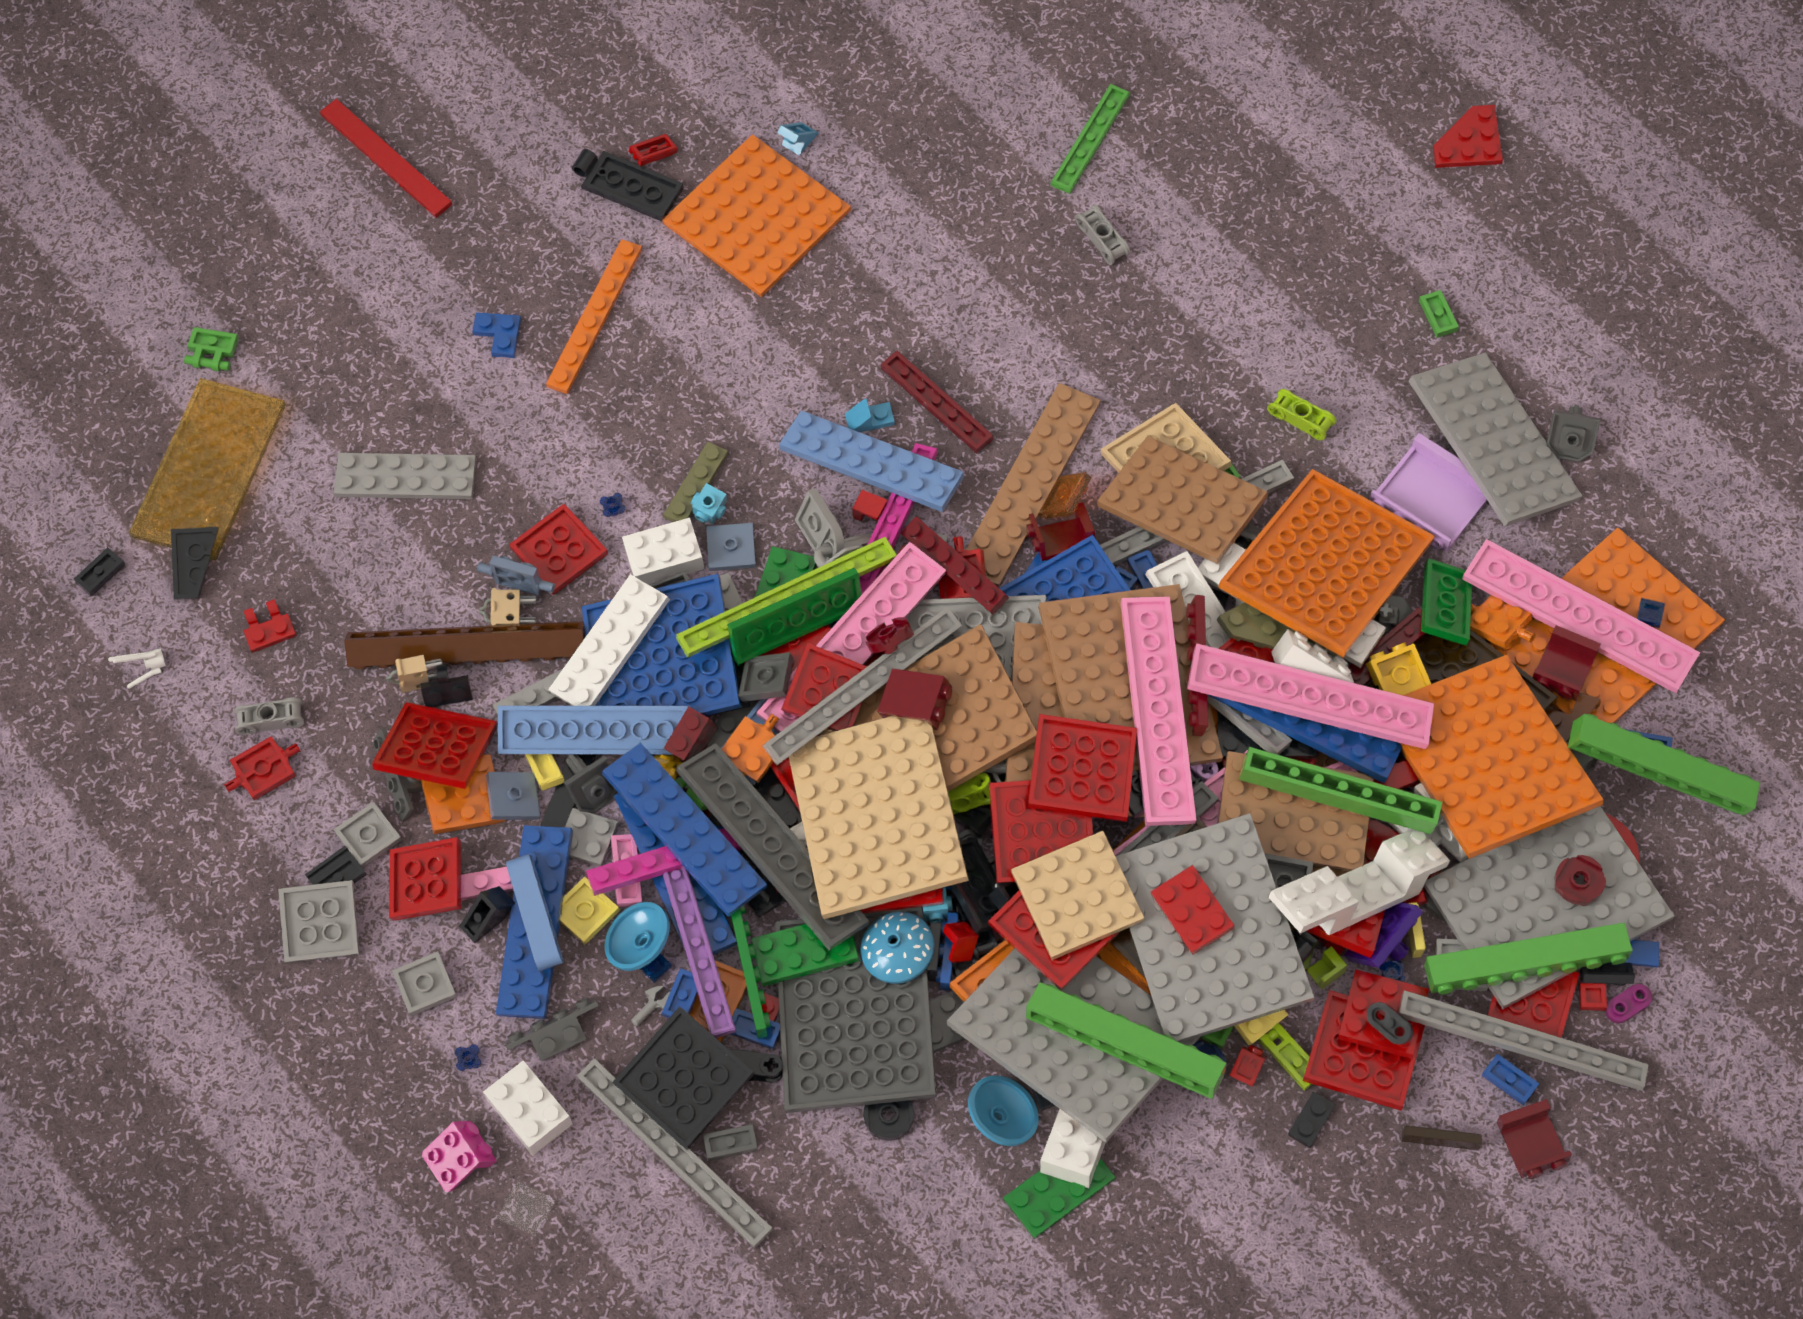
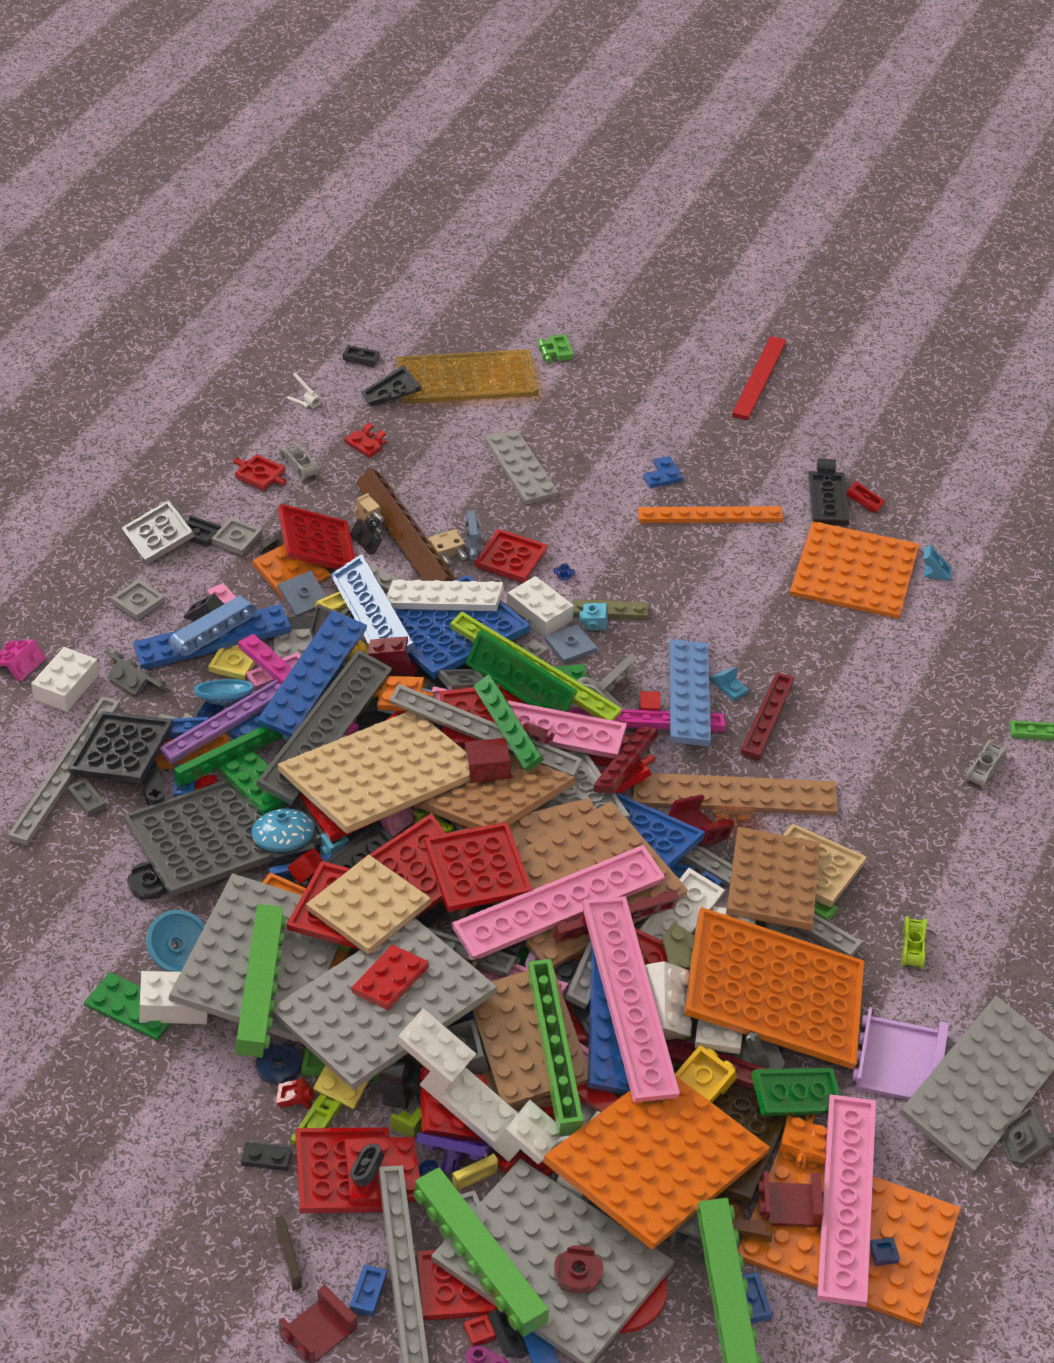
camera: 60 degrees right, 20 degrees down
(425, 879) = (215, 571): red plate -> none
(473, 1062) = (92, 640): clear blue plate -> none
(876, 656) = (508, 723): none -> green plate

